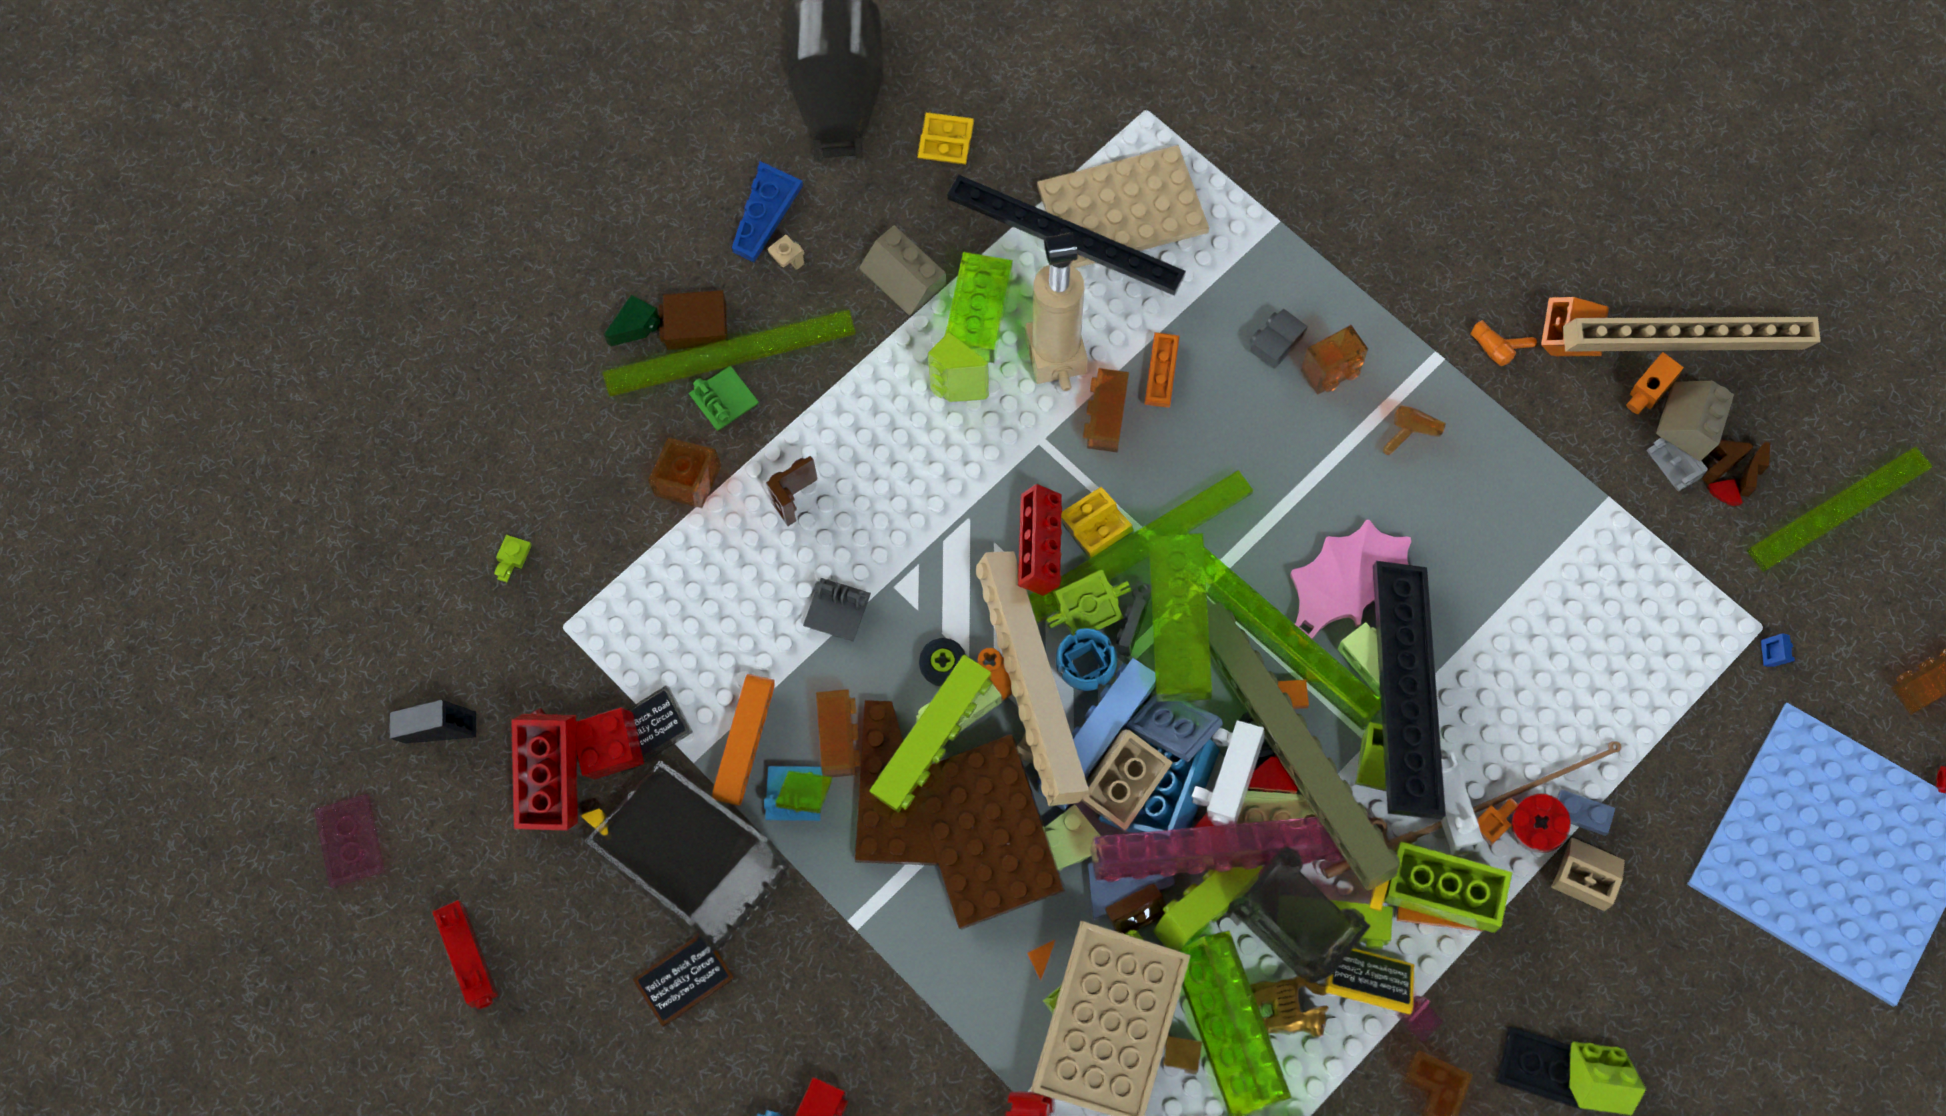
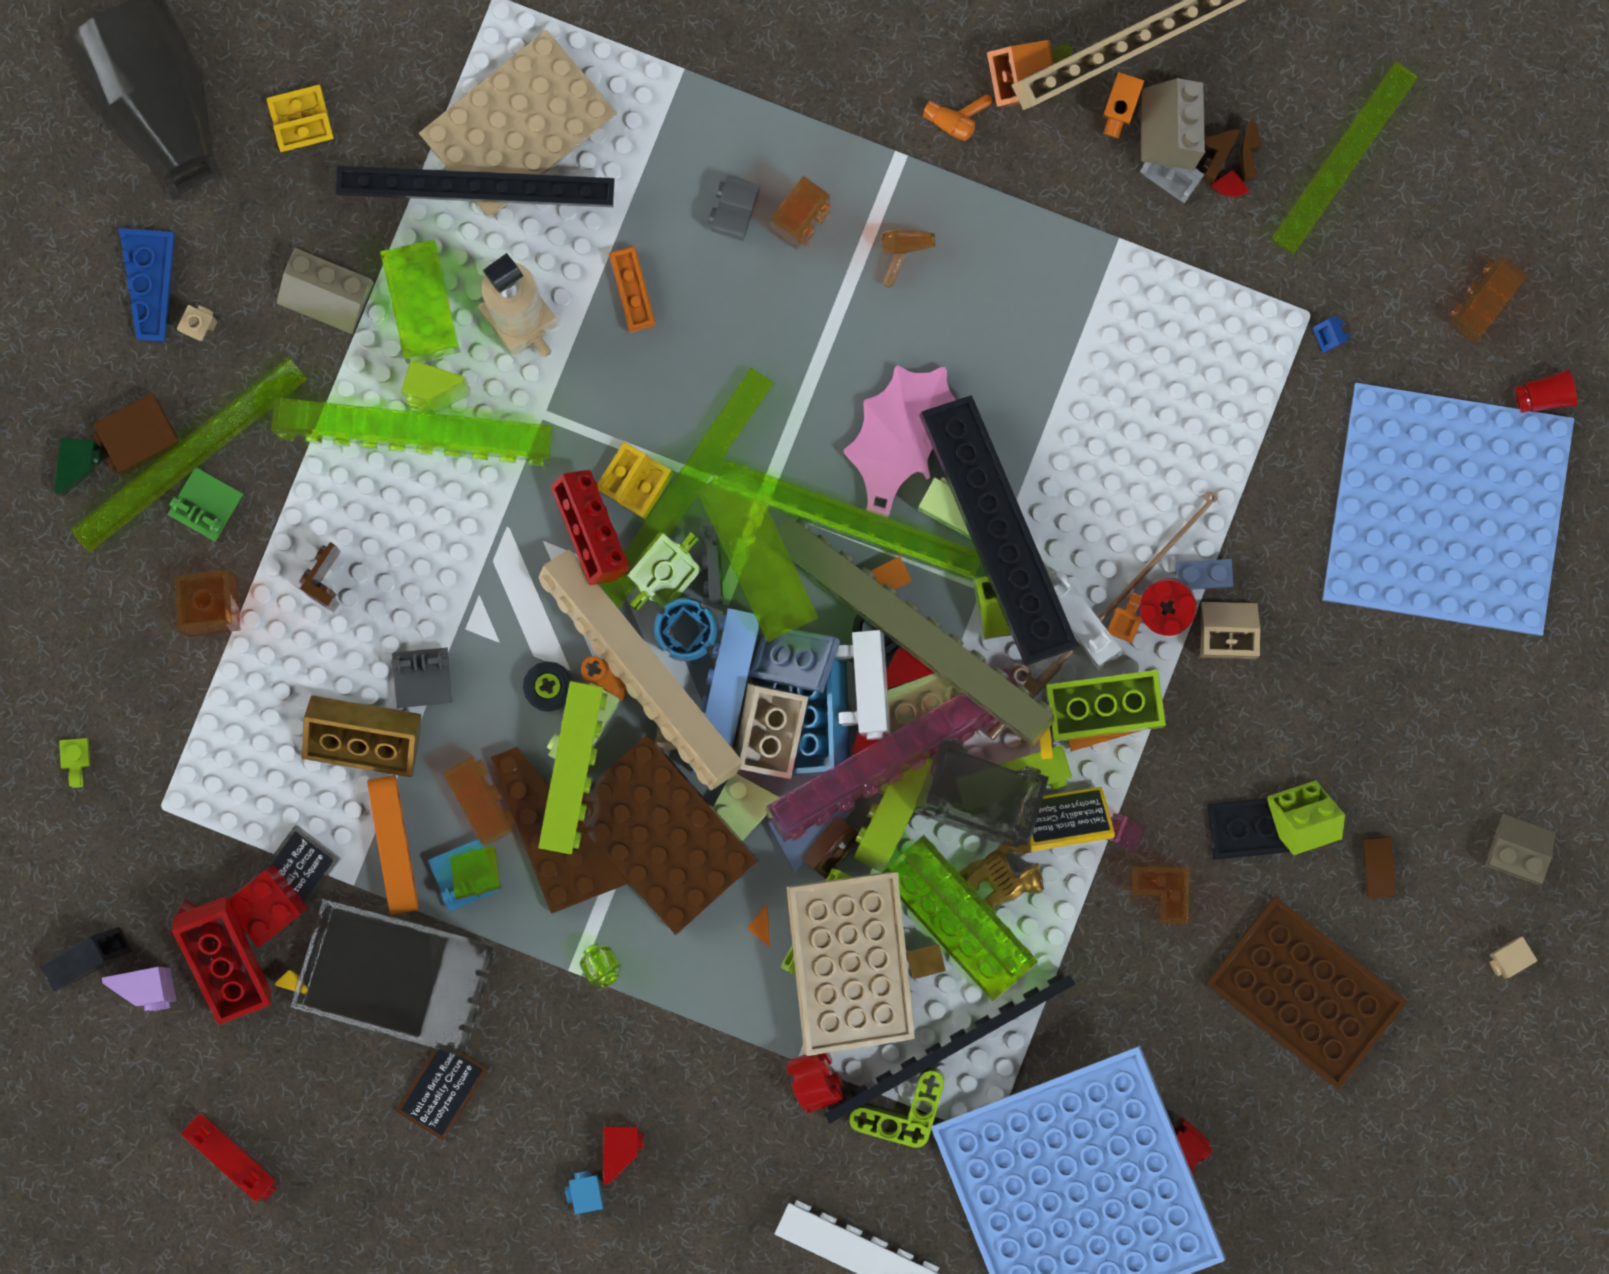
camera: 30 degrees left, 15 degrees up
(349, 841) = (63, 1101): clear pink tile -> none
(468, 764) = (145, 988): none -> lavender slope
(760, 635) = (361, 736): none -> pearl gold slope
(877, 926) = (600, 965): none -> clear neon green head
(925, 405) = (412, 430): none -> clear neon green brick
(1106, 410) = (595, 359): clear orange brick -> none

